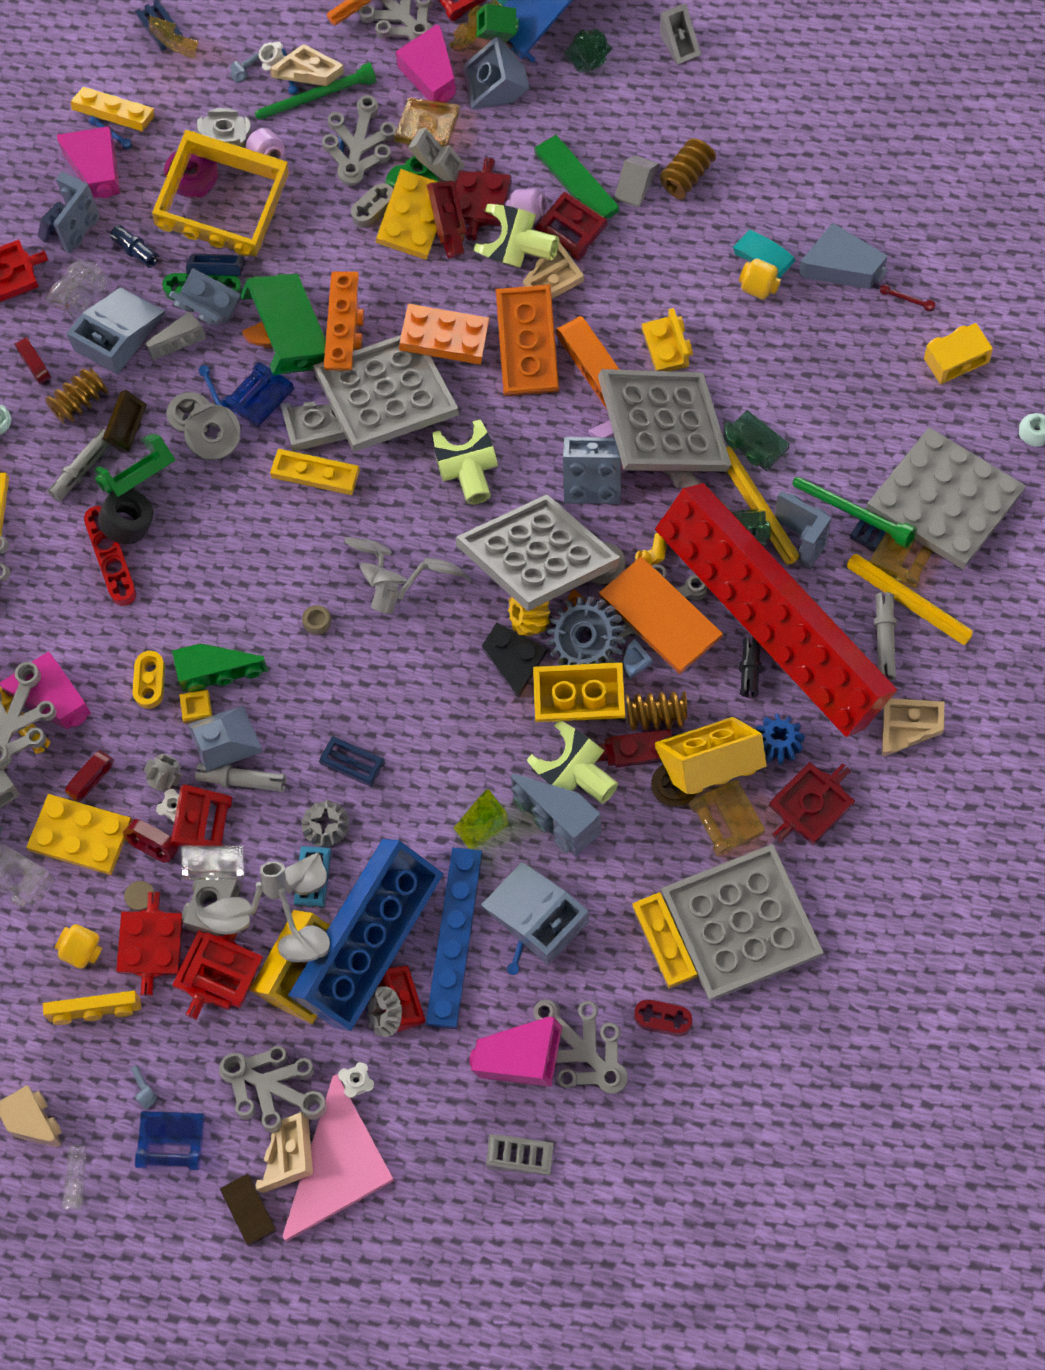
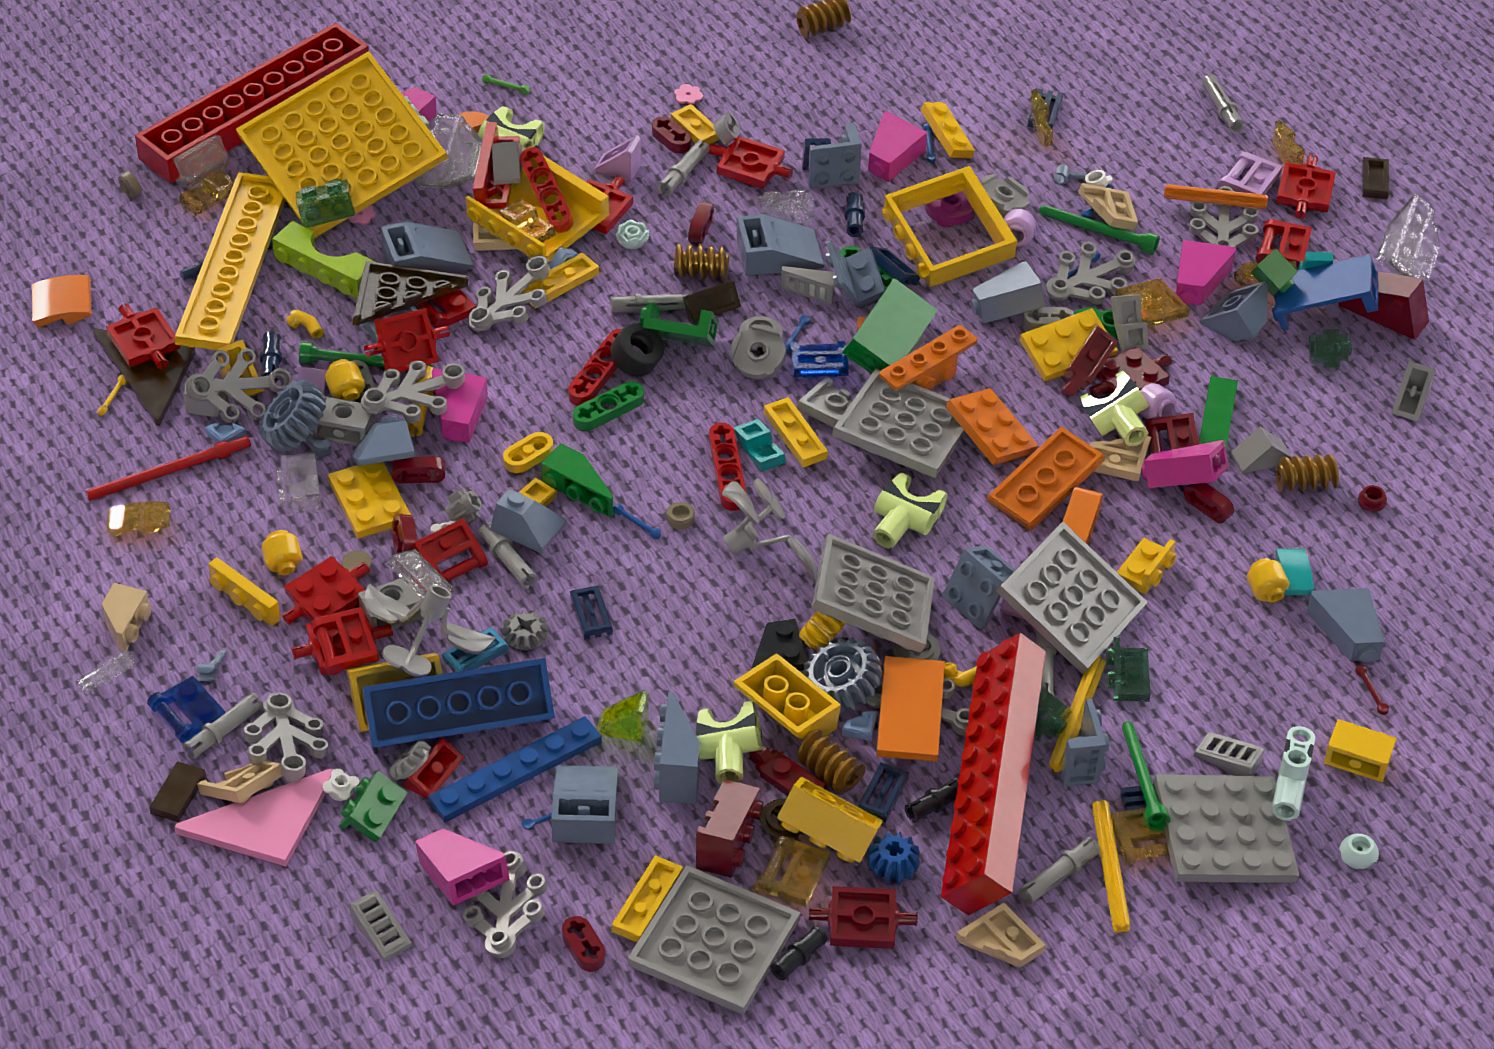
camera: 40 degrees right, 20 degrees down
(44, 783) = (384, 442): none -> sand blue slope
(151, 571) = (617, 397): none -> green beam
(214, 1124) = (214, 732): none -> light grey pin
(298, 550) = (728, 466): none -> red beam
(301, 508) = (758, 445): none -> teal slope
(315, 652) = (654, 532): none -> blue hinge
(328, 211) = (1008, 294): none -> sand blue slope
(398, 1072) = (373, 806): none -> green bracket
(610, 240) = (1186, 465): none -> dark pink slope
(649, 252) = (1209, 501): none -> dark red beam
(653, 830) = (728, 828): none -> dark red wedge
(729, 711) = (875, 809): none -> dark blue tile
(747, 140) = (1372, 498): none -> dark red plate
(804, 873) = (798, 953): none -> black pin
(897, 443) = (1232, 765): none -> light grey slope
(948, 416) = (1293, 774): none -> light aqua connector

